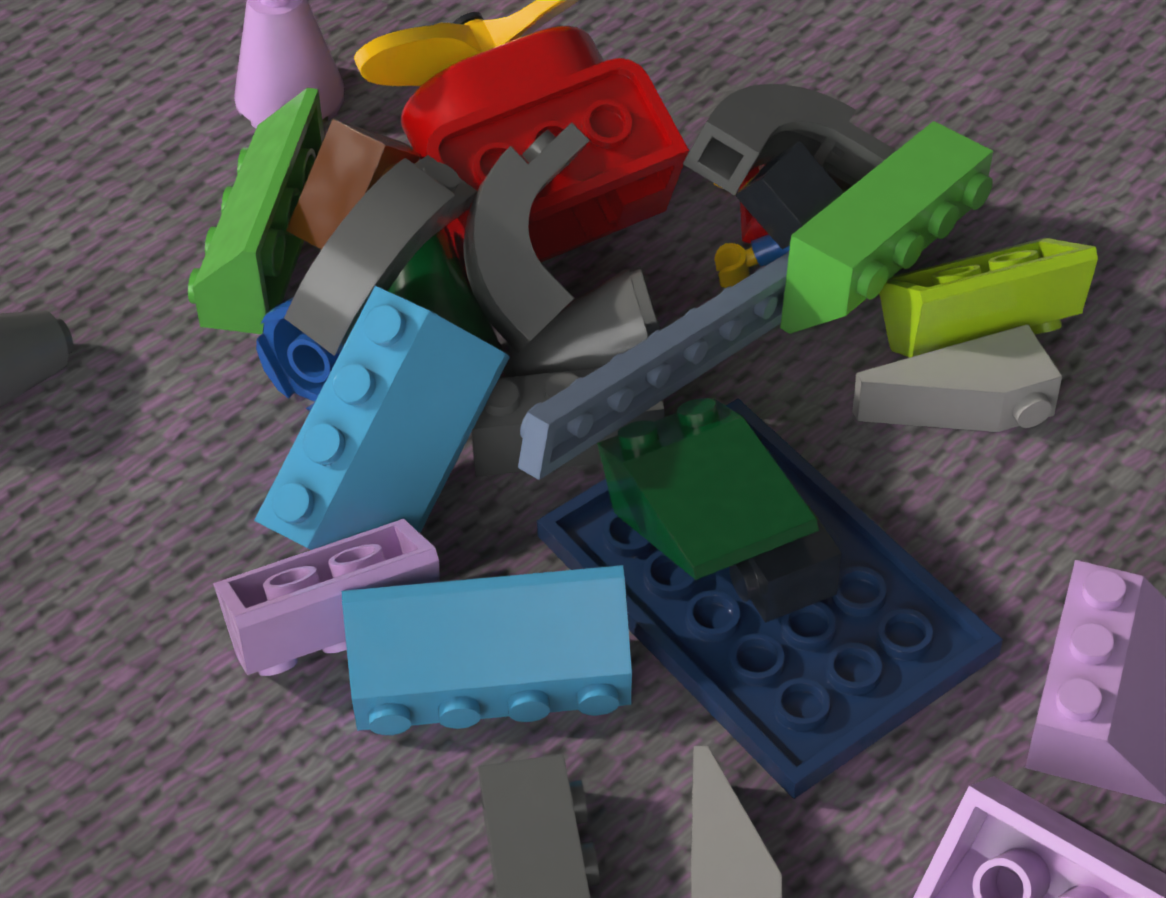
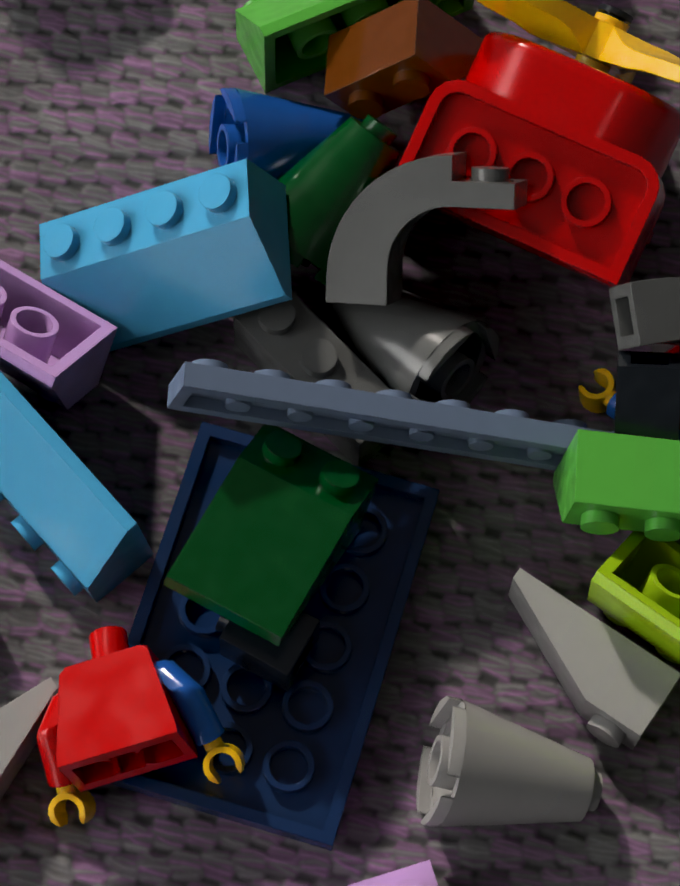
camera: 50 degrees right, 20 degrees up
(375, 246) = (311, 126): dark grey arch -> none
(782, 707) = (123, 720): none -> red torso
(1013, 494) = (499, 773): none -> light grey cone

